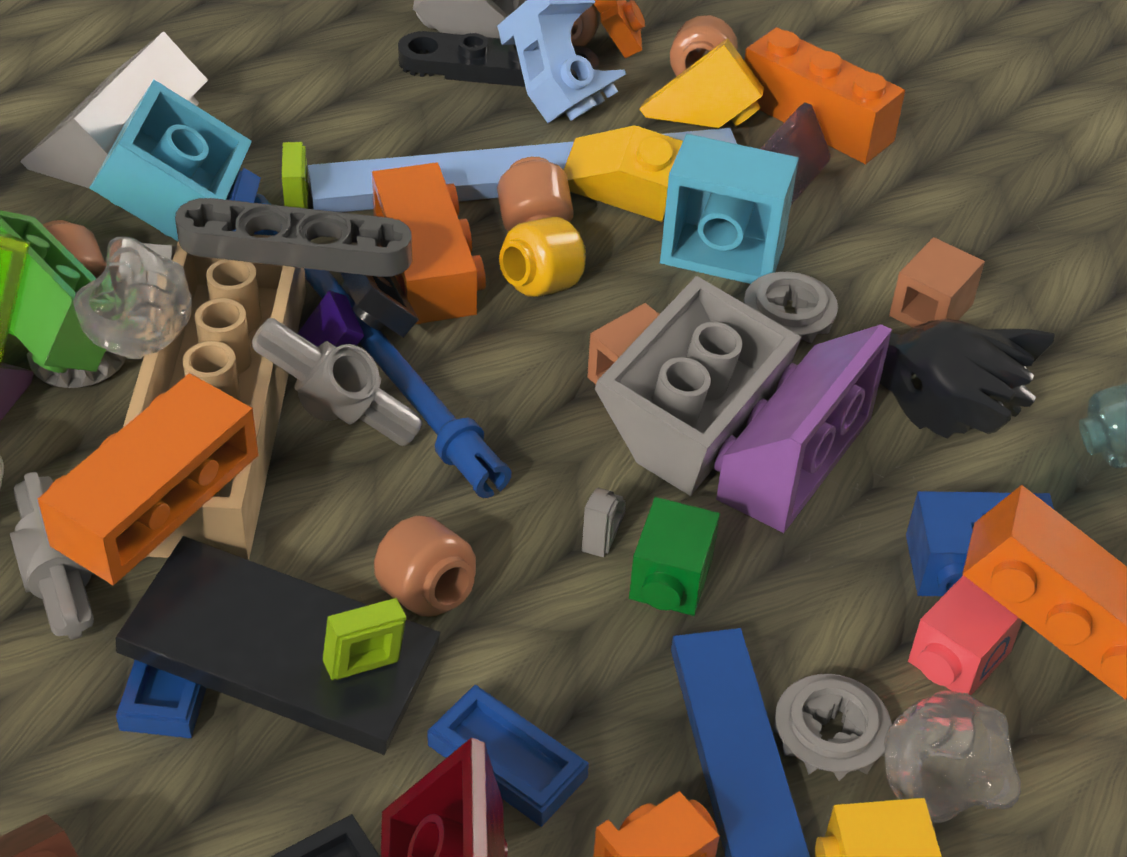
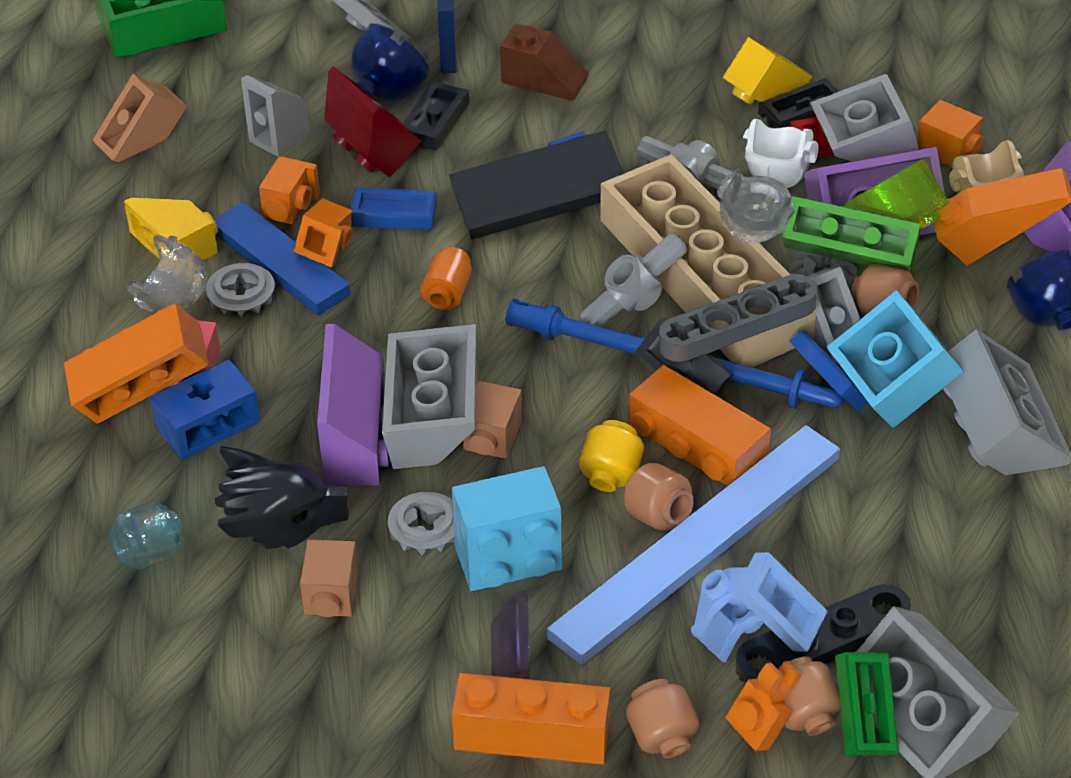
camera: 150 degrees right, 0 degrees up
(149, 478) = (648, 151): orange brick -> none
(294, 175) = (830, 422): lime tile -> none
(363, 638) = (489, 179): lime tile -> none
(425, 566) = (502, 246): nougat head -> none
(538, 562) = (446, 278): none -> orange brick
(601, 521) = (431, 310): light grey tile -> none
(624, 169) = (610, 541): yellow slope -> none
(659, 715) = (324, 232): none -> orange brick
(673, 556) = (376, 313): green brick -> none
(709, 91) = (620, 656): yellow slope -> none

